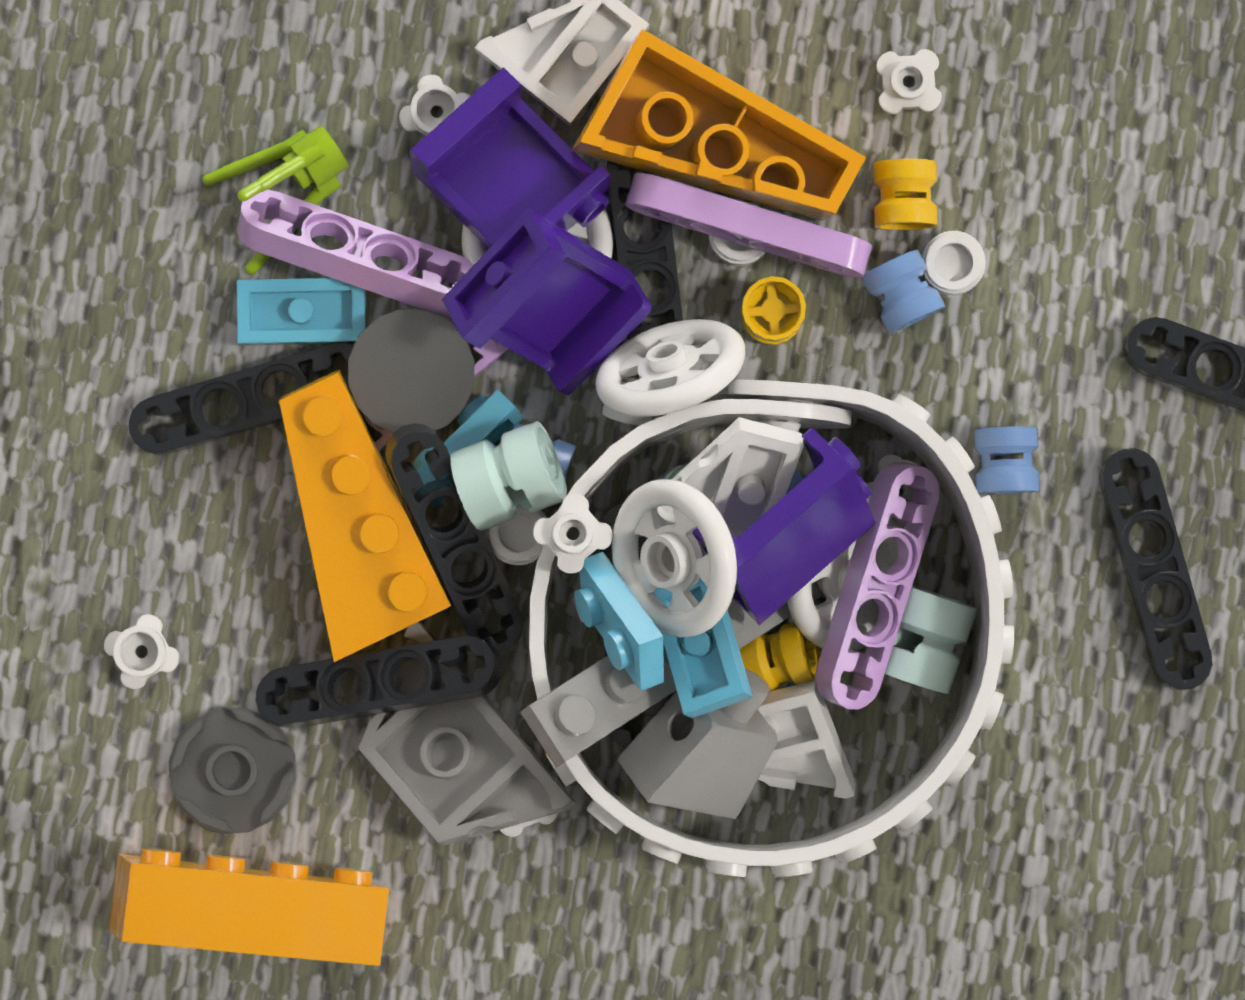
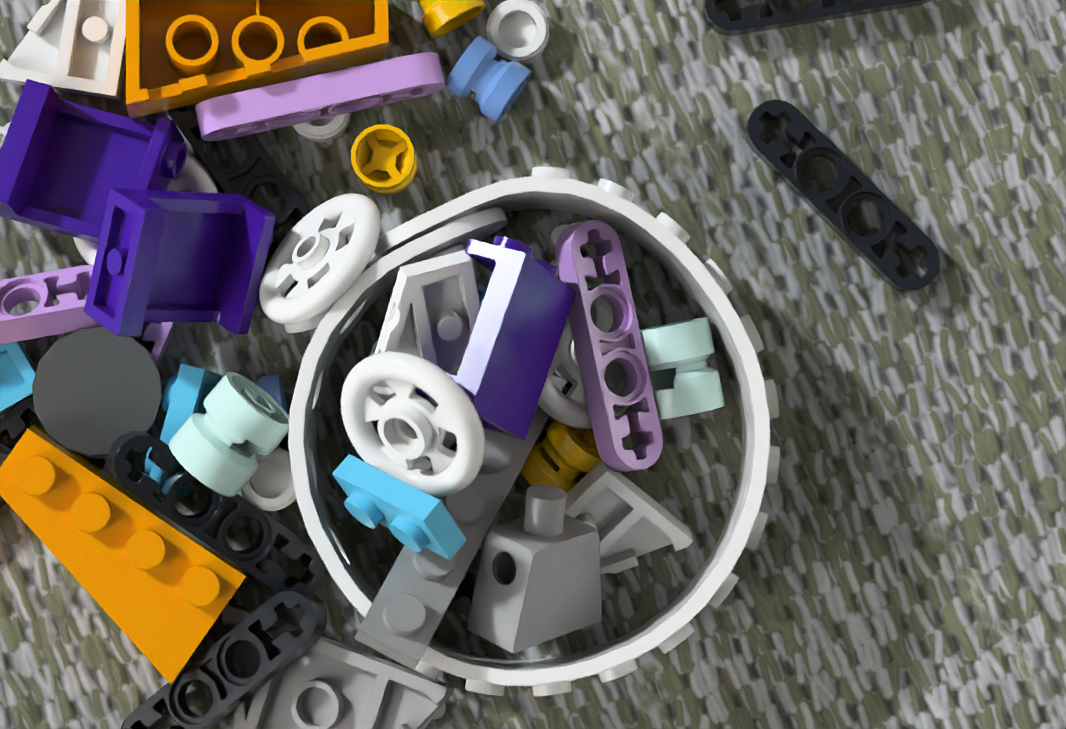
camera: 30 degrees left, 0 degrees up
(573, 552) = (293, 459): white plate -> none
(706, 666) = (496, 503): medium azure plate -> none
(1007, 475) = (668, 186): medium blue wheel -> none

